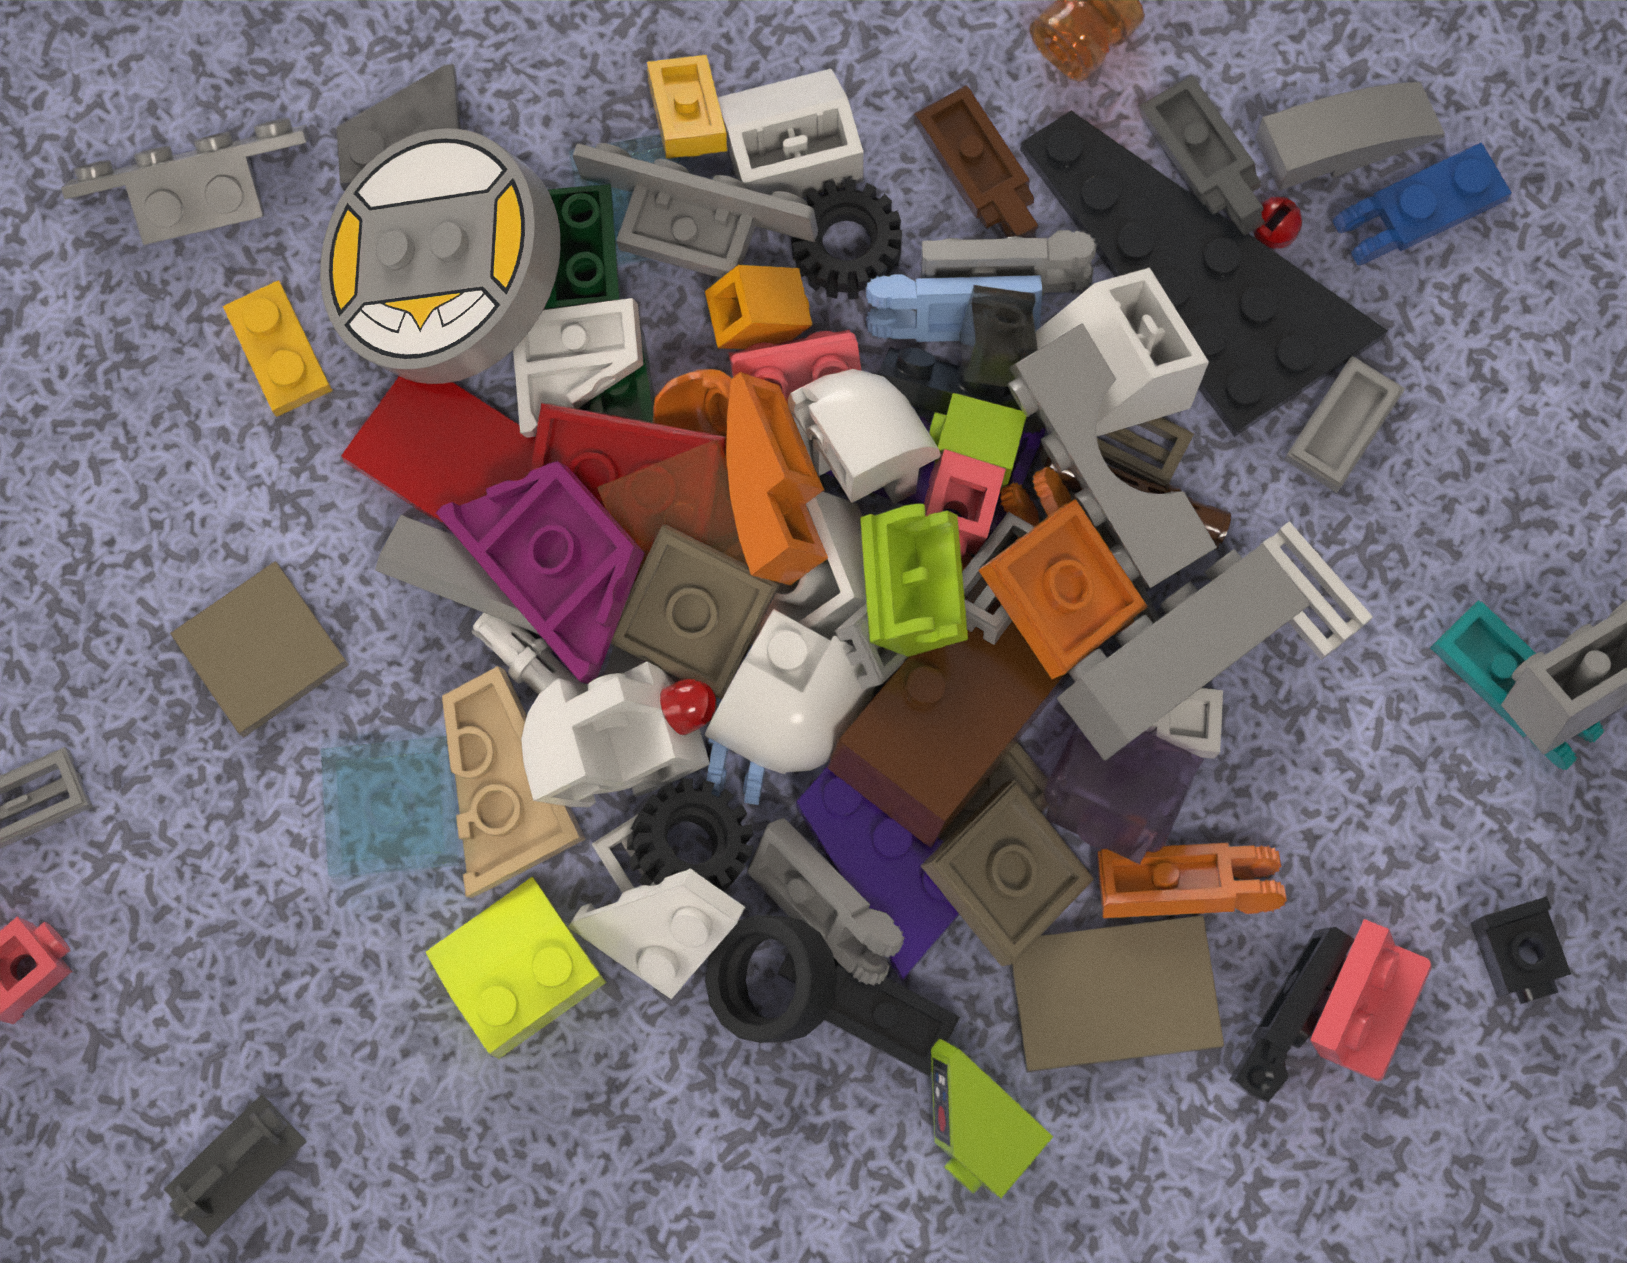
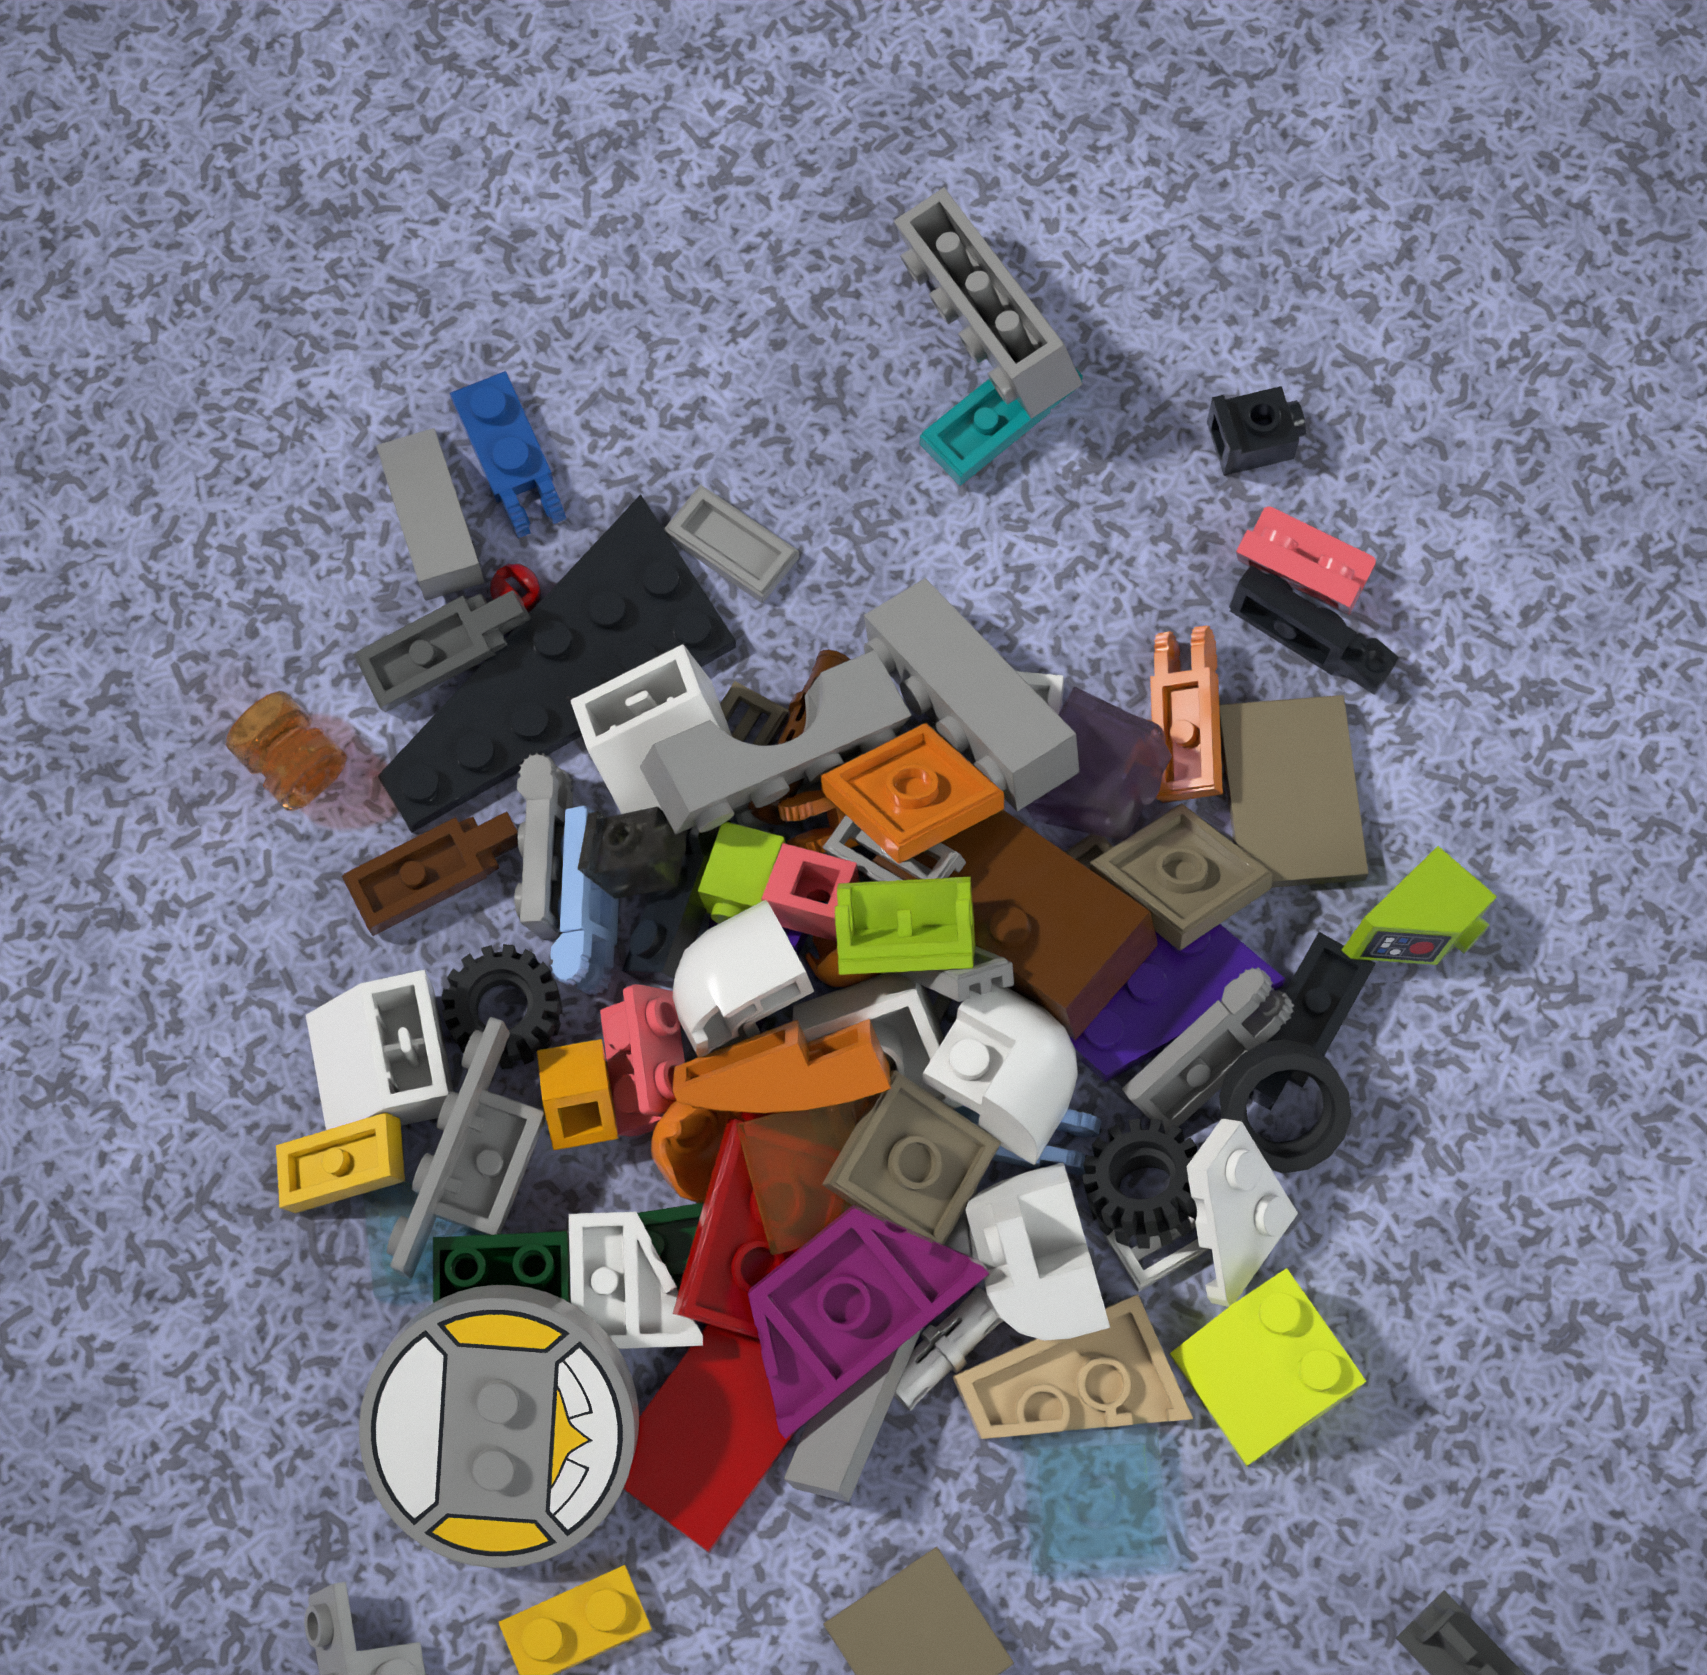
camera: 90 degrees left, 5 degrees down
(414, 109) = (329, 1485): flat silver wing -> none
(688, 705) = (1009, 1171): red hinge -> none
(1329, 581) = (939, 562): white tile -> none

